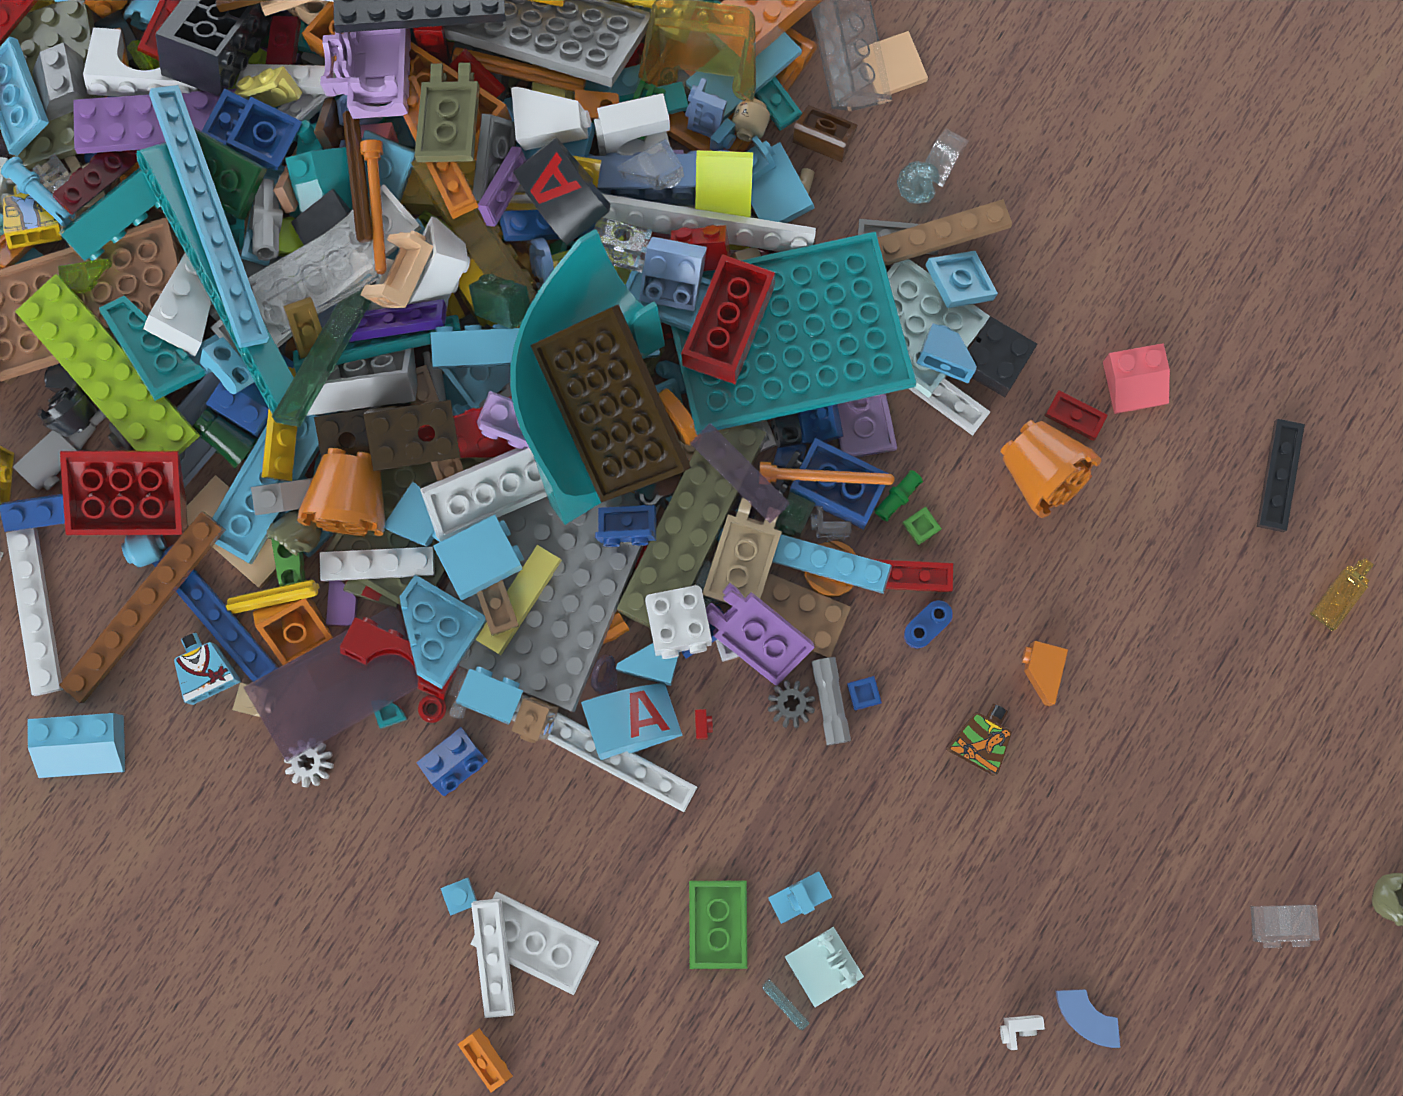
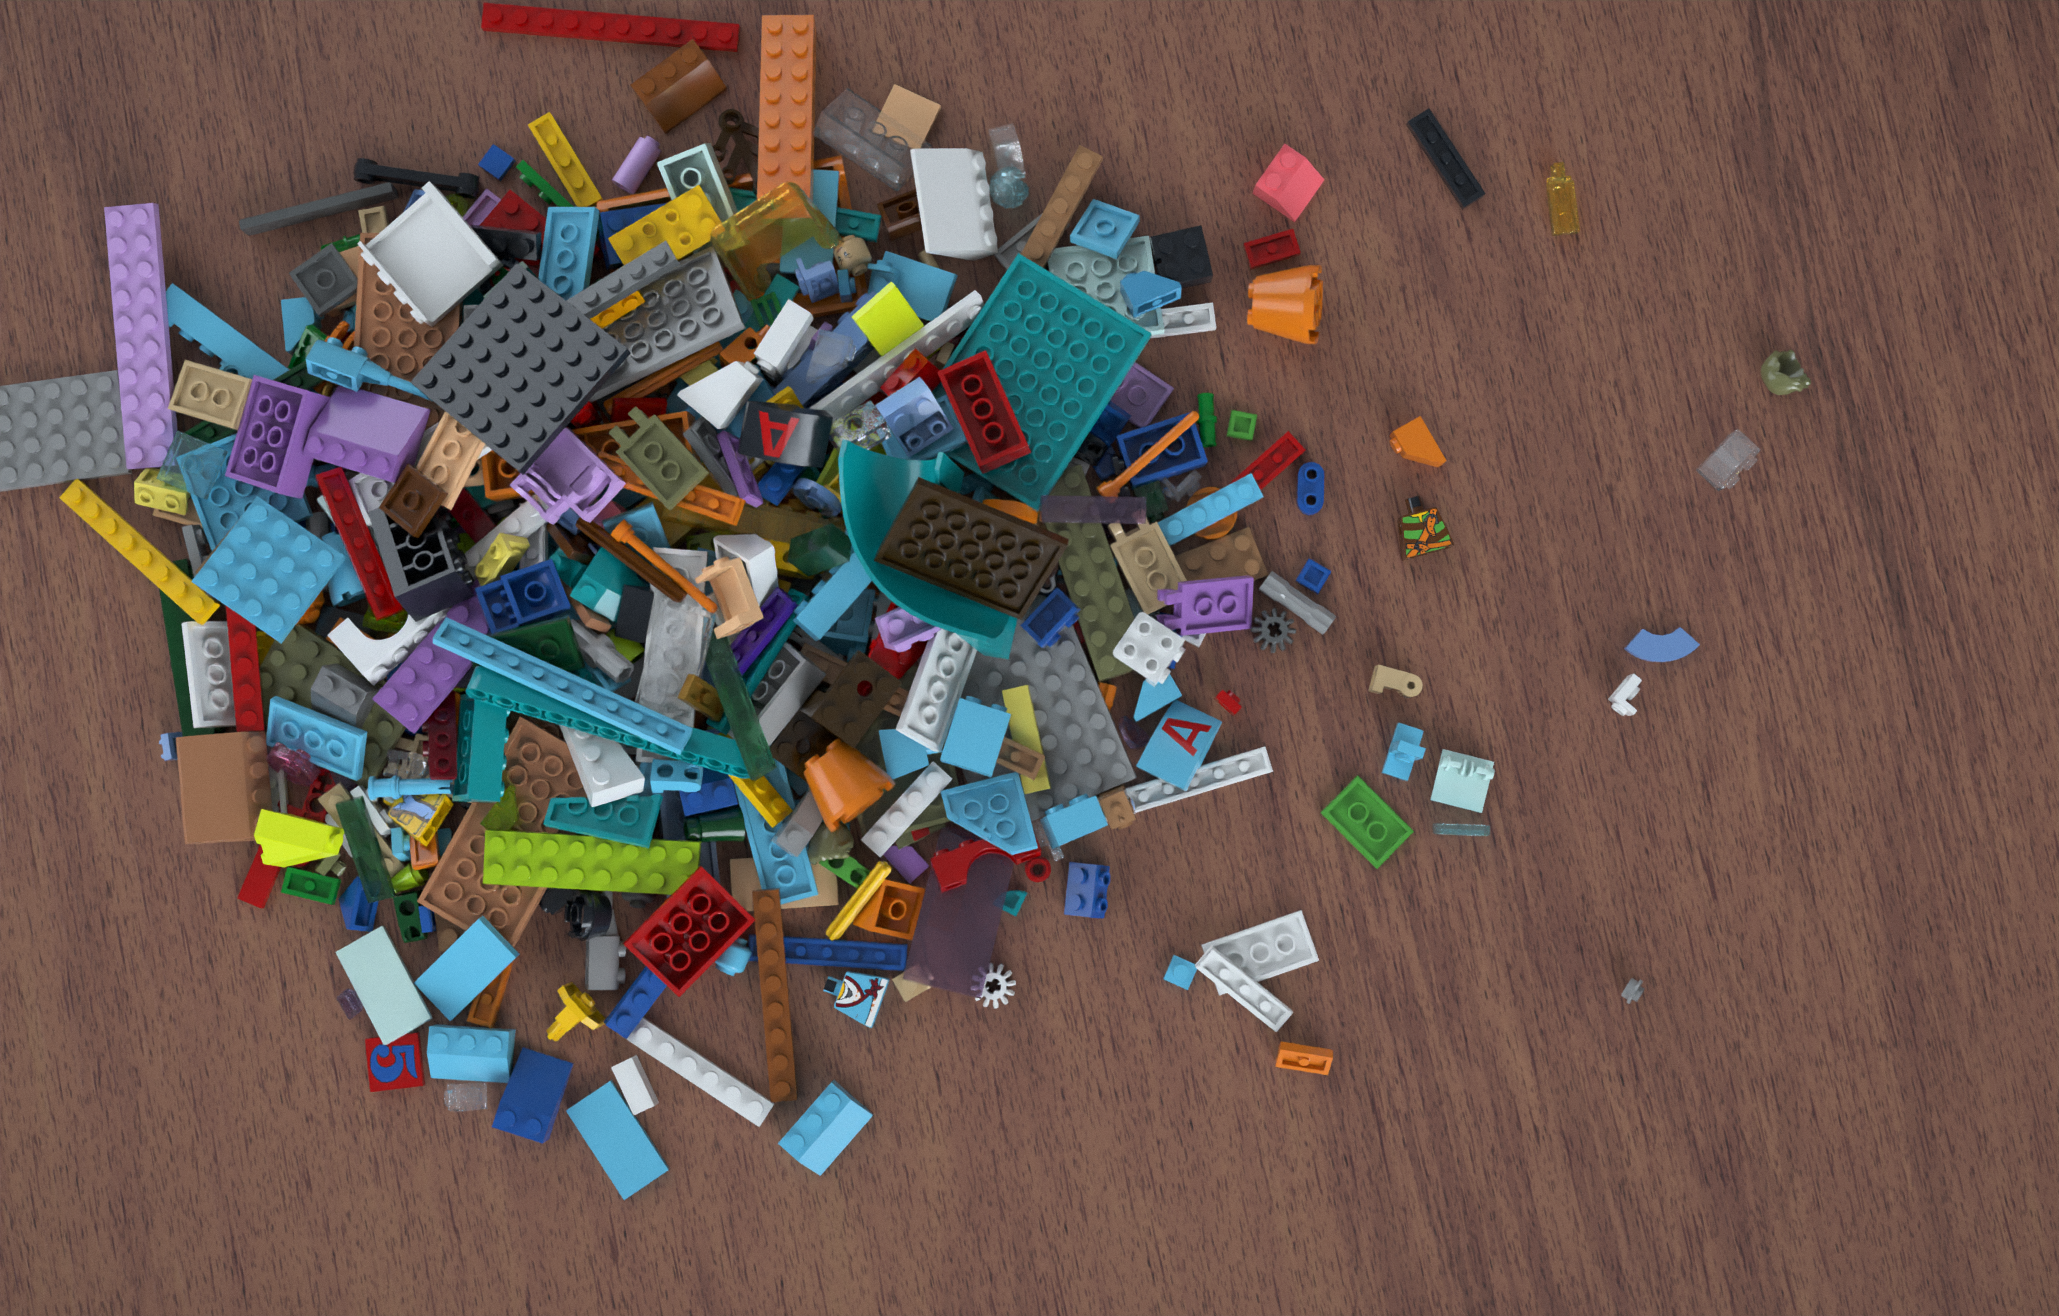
camera: 45 degrees left, 5 degrees up
(853, 845) = (1404, 683): none -> tan leg
(864, 151) = (954, 202): none -> white slope

